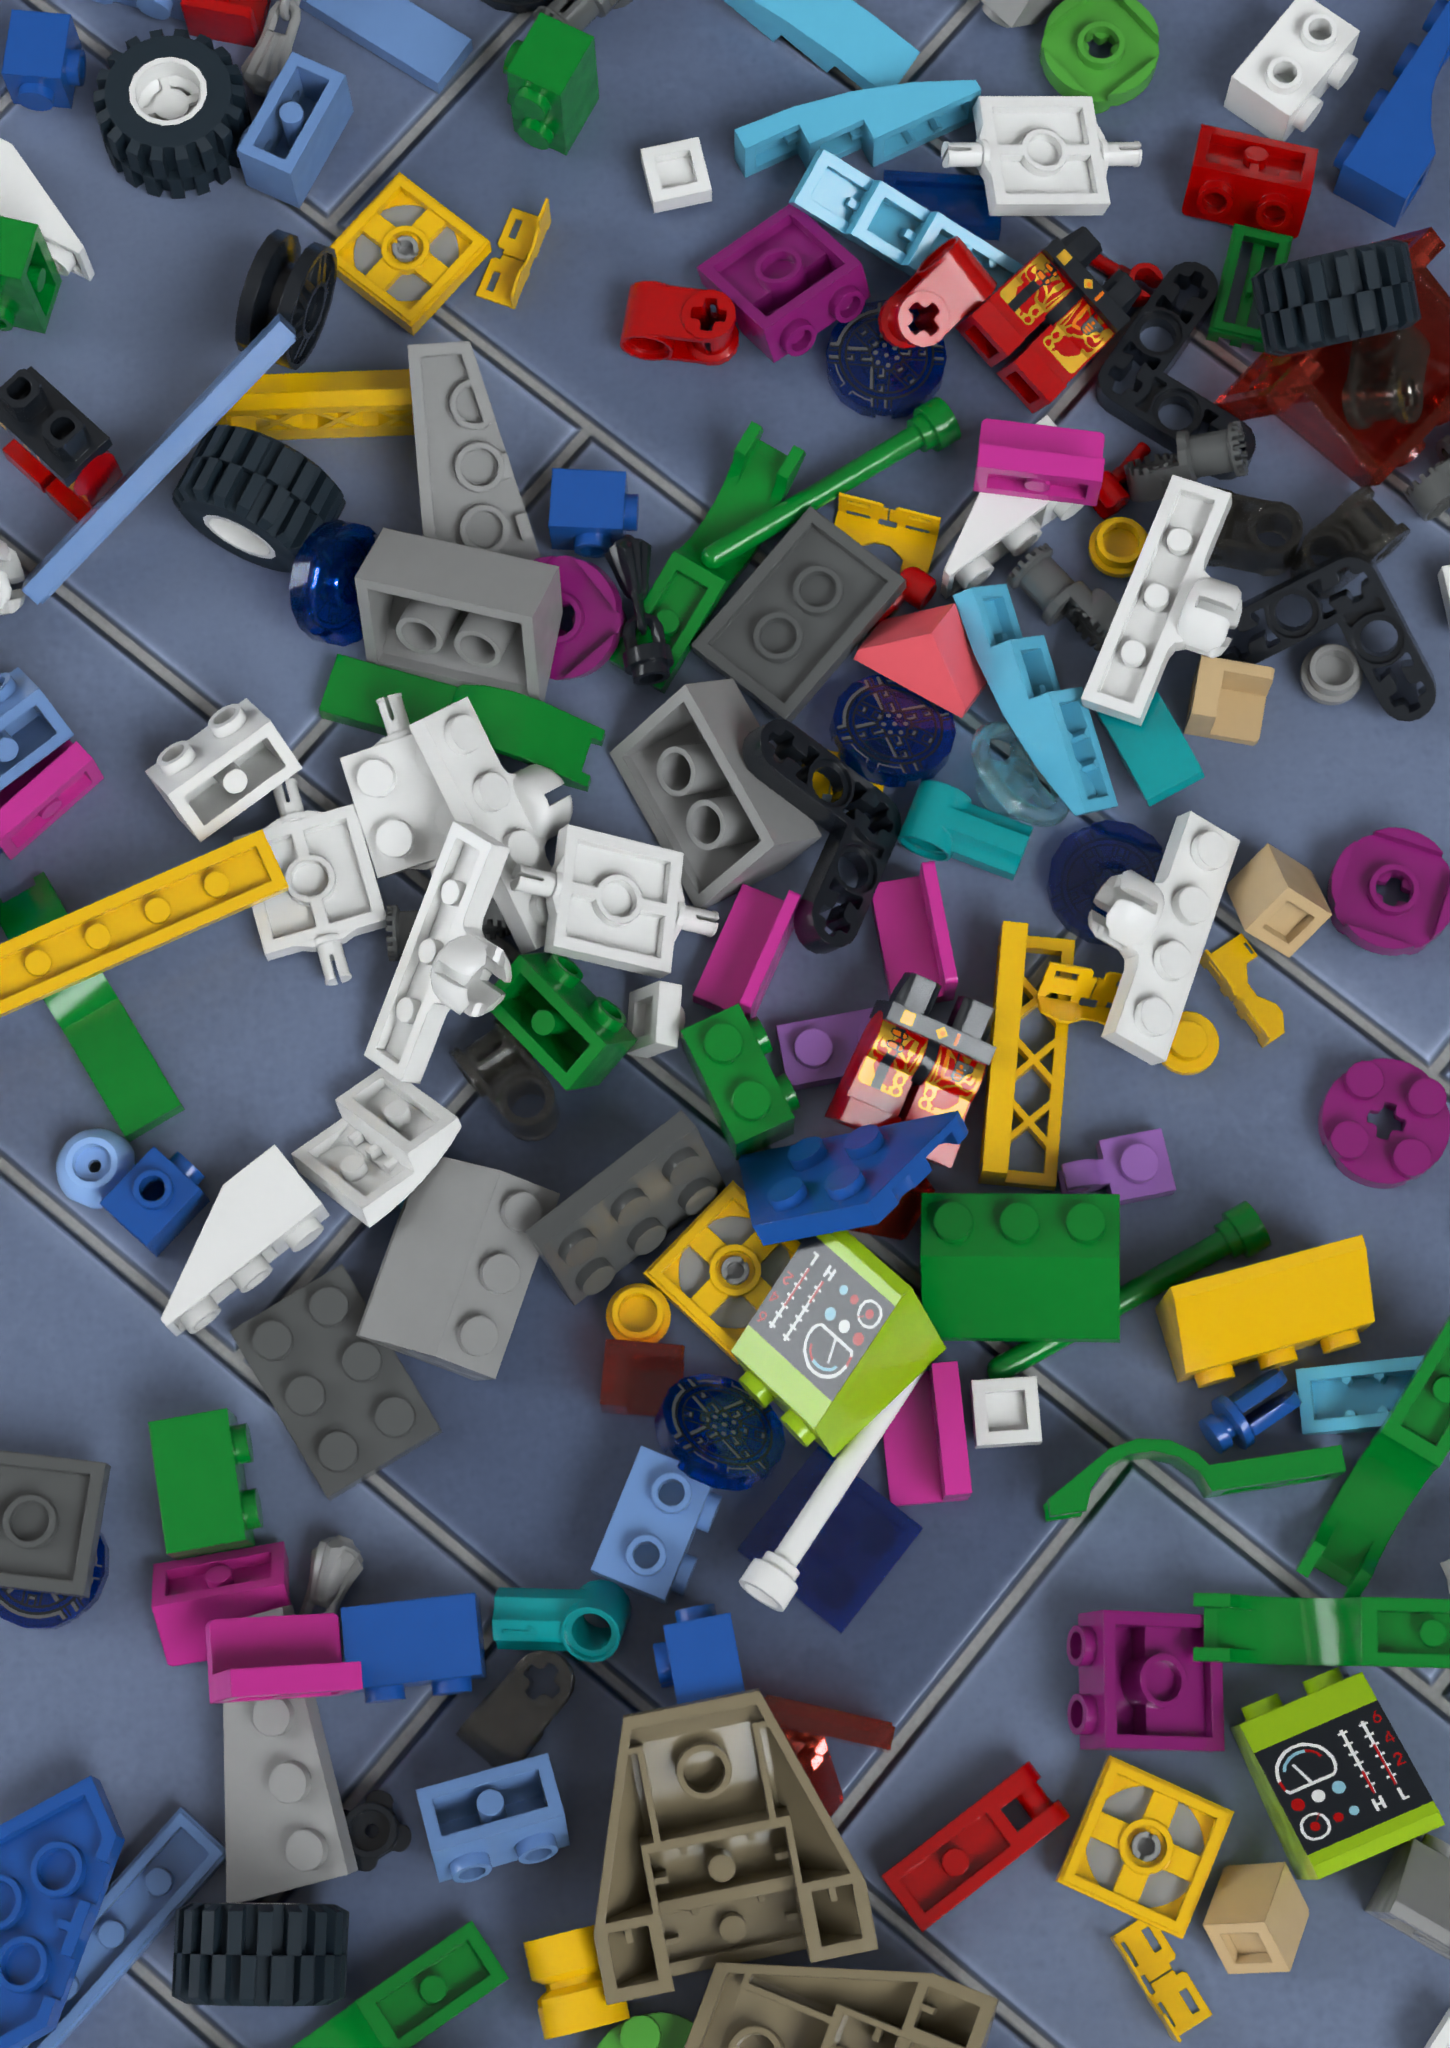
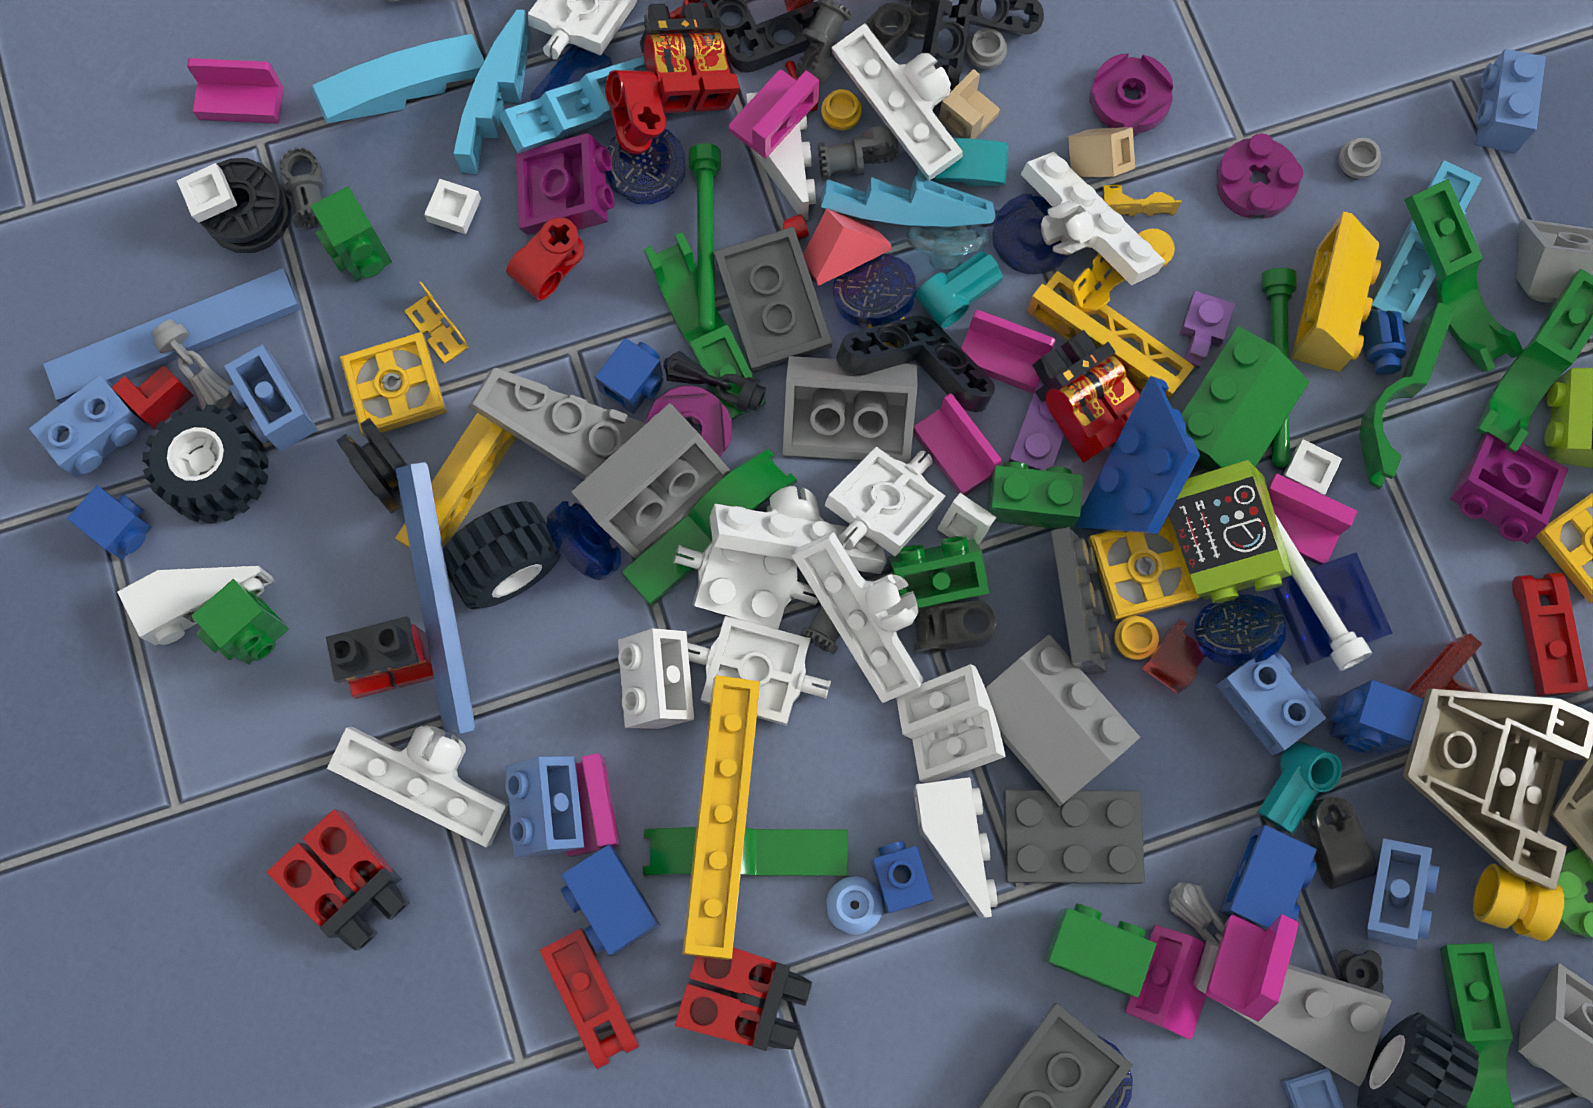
camera: 60 degrees left, 0 degrees up
(910, 545) = (765, 218): yellow piece -> none

